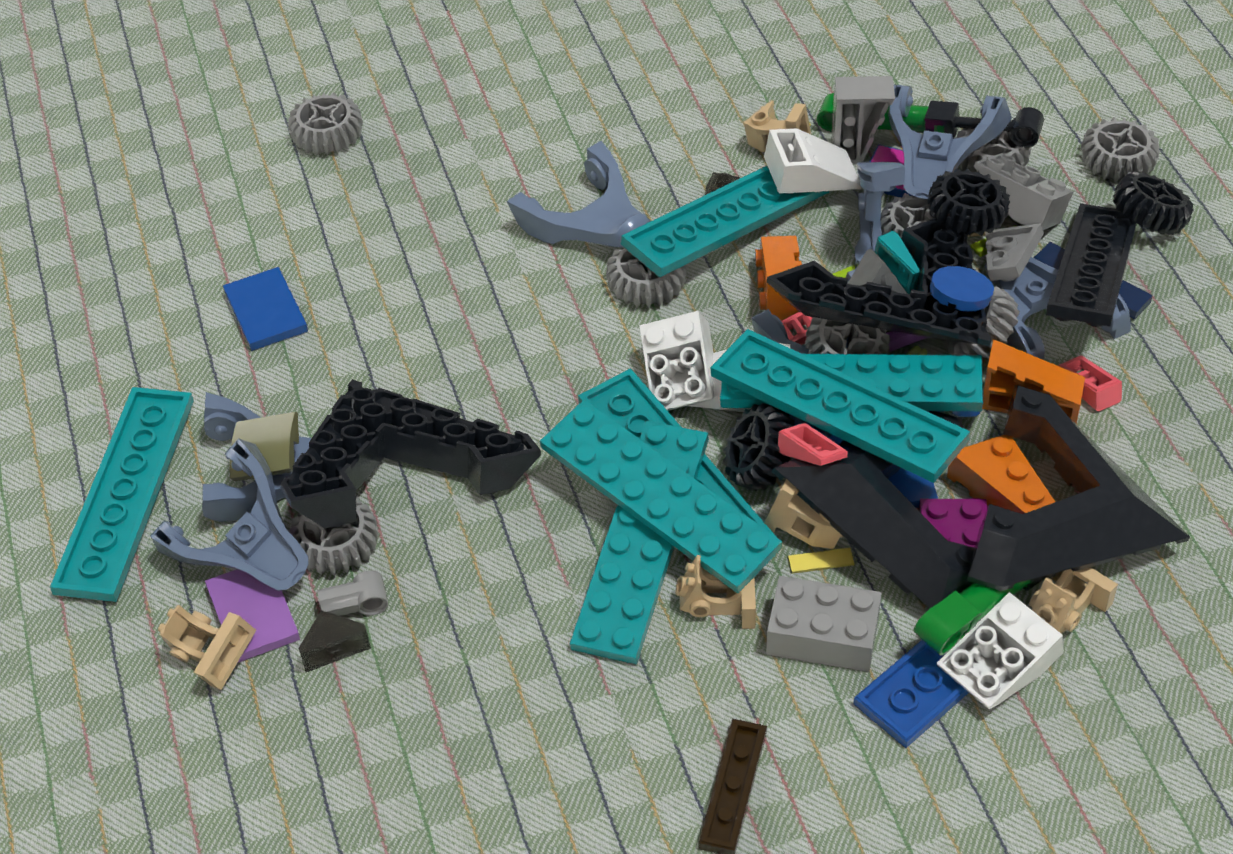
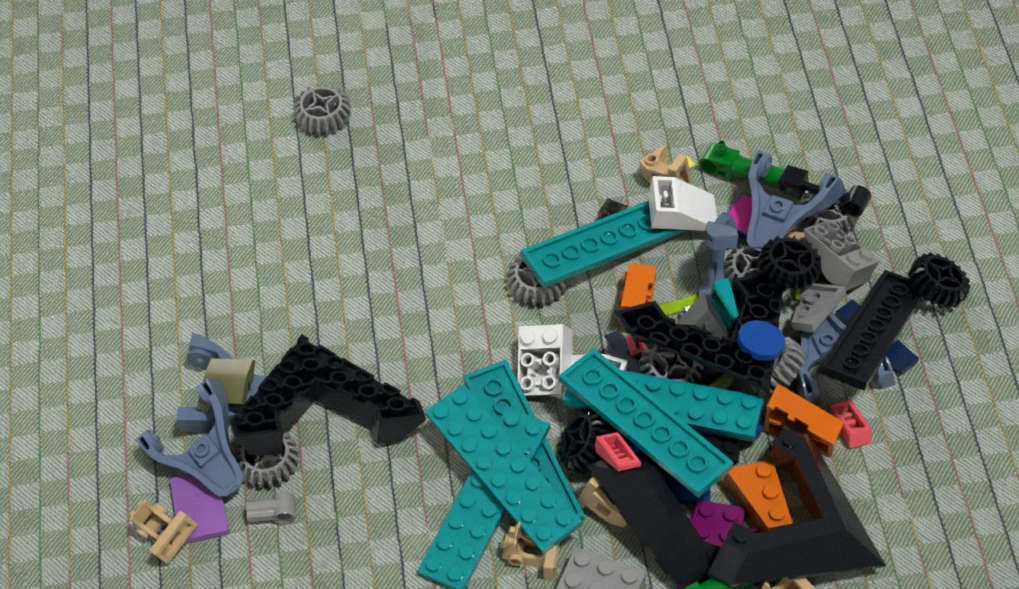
camera: 10 degrees right, 5 degrees up
(122, 495) = (123, 399): teal plate -> none
(265, 308) = (249, 262): blue tile -> none
(332, 640) = (250, 540): clear smoke slope -> none
(597, 223) = (514, 230): sand blue animal -> none
(821, 560) = (612, 535): light yellow window -> none
(859, 111) = (727, 169): light grey wedge -> none
(1119, 148) = (929, 222): light grey gear -> none

